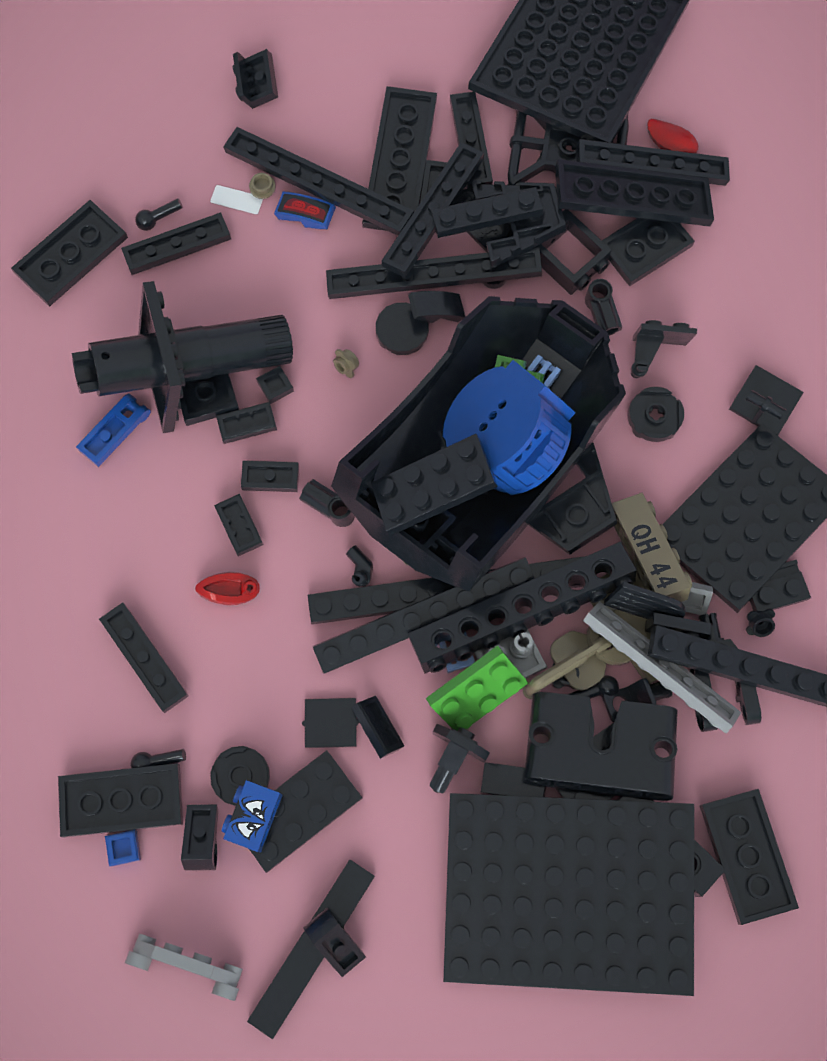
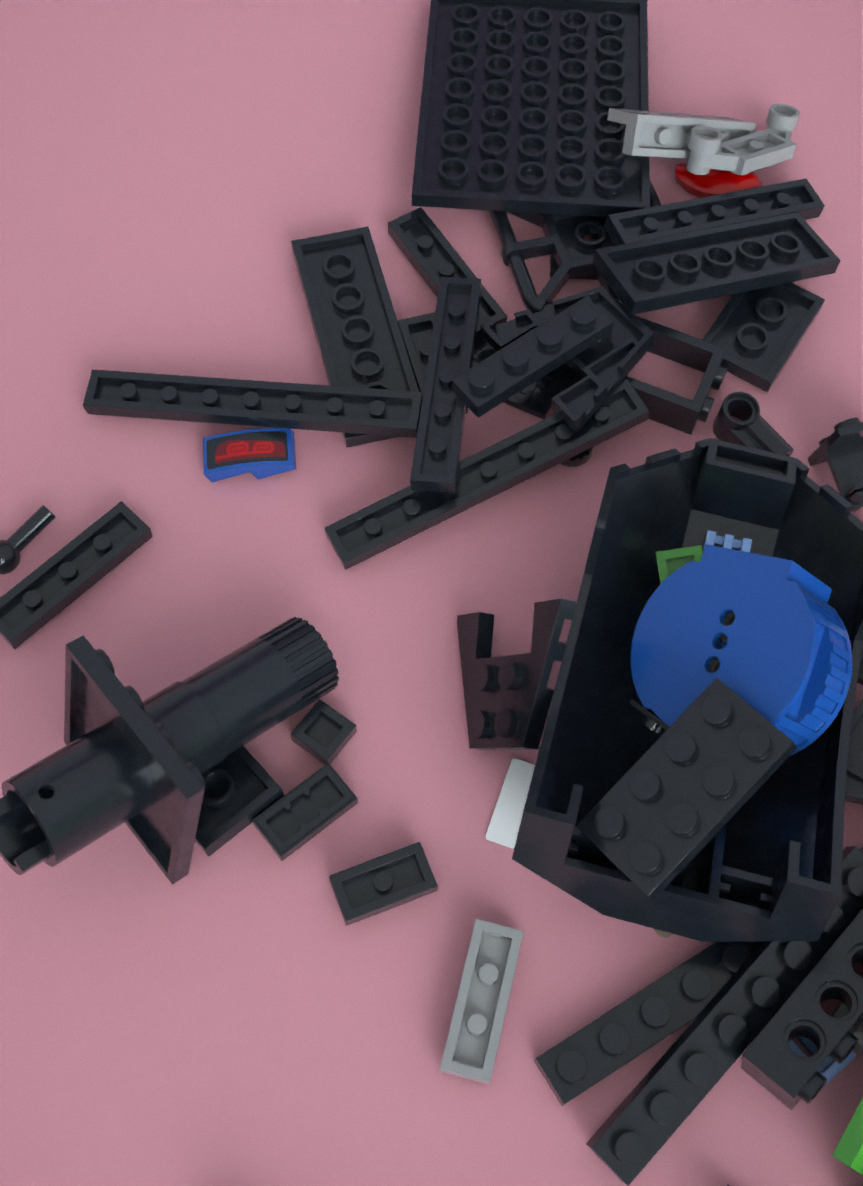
camera: 25 degrees left, 10 degrees down
(113, 429) = (86, 915): blue plate -> none
(228, 588) = (399, 1105): red arm -> none
(236, 199) = (134, 476): white sticker -> none
(238, 525) = (368, 987): black plate -> none
(255, 78) = (90, 294): black bracket -> none
(262, 186) = (167, 441): dark tan plate -> none
(293, 555) = (482, 1002): none -> light grey plate
(325, 502) = (491, 887): black piece -> none
(345, 362) = (418, 654): dark tan plate -> none
(363, 566) = (600, 971): black arm -> none
(380, 394) = (510, 694): none -> black wing
(399, 330) = (476, 572): black tile -> none
(433, 305) = (515, 518): black slope -> none
(660, 101) = (669, 133): none -> light grey fence
(697, 127) = (745, 152): none -> light grey plate

